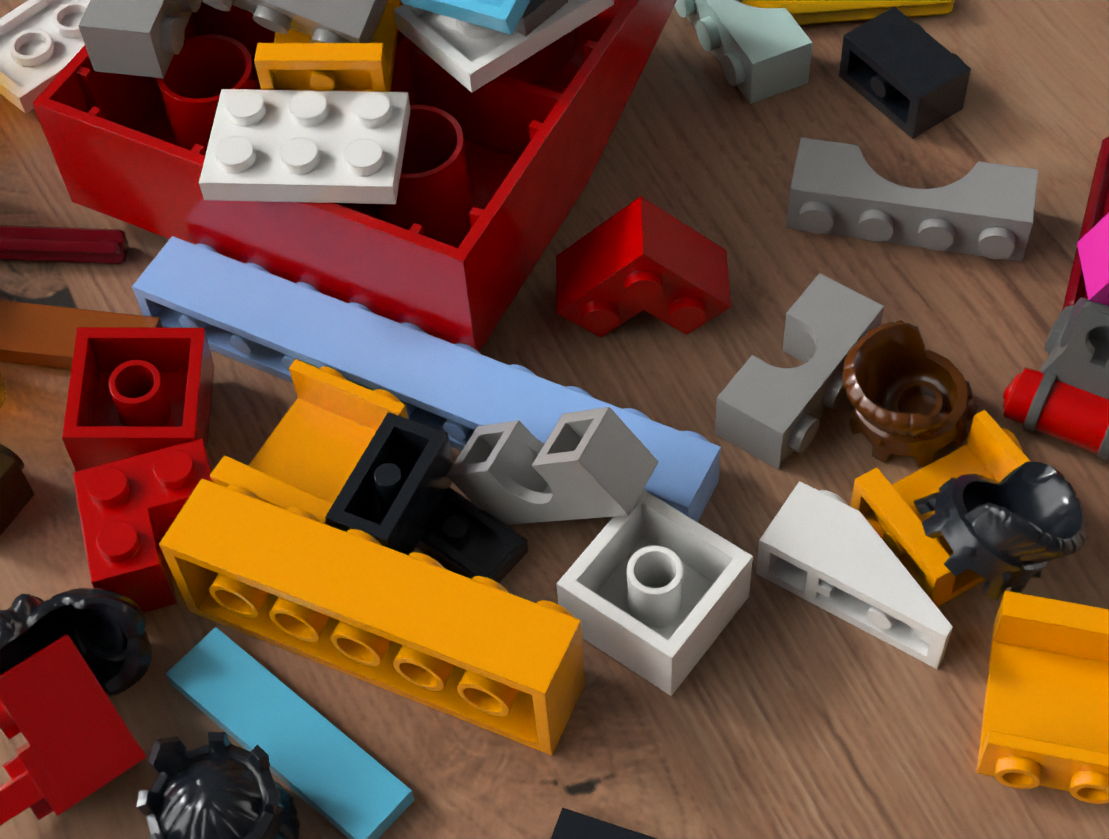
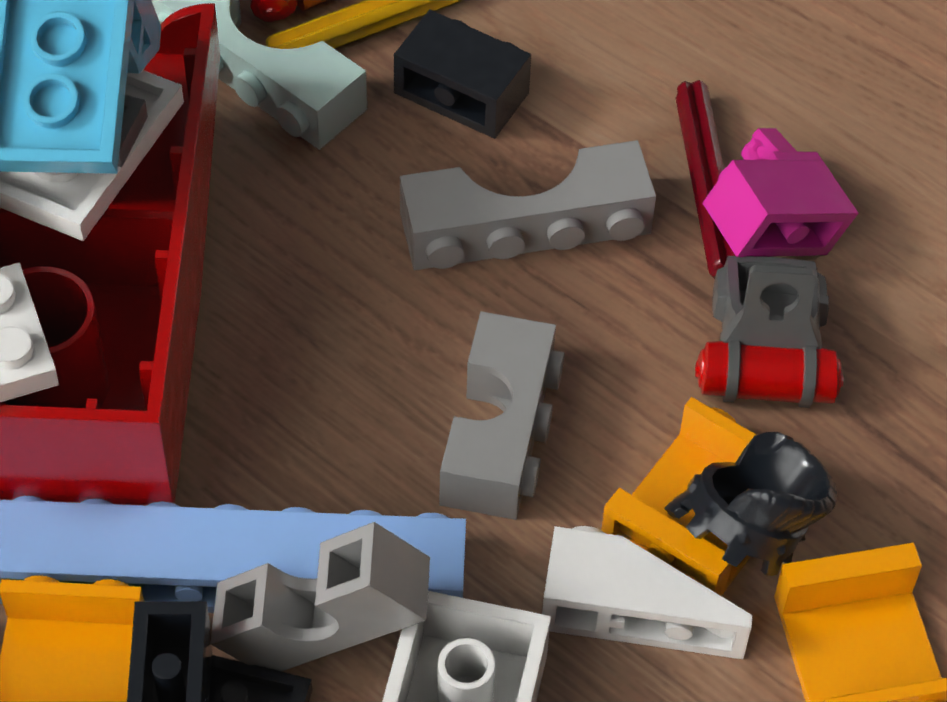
camera: 30 degrees left, 0 degrees up
(641, 264) = (304, 359): red brick -> none
(905, 395) = (610, 406): reddish brown hair -> none

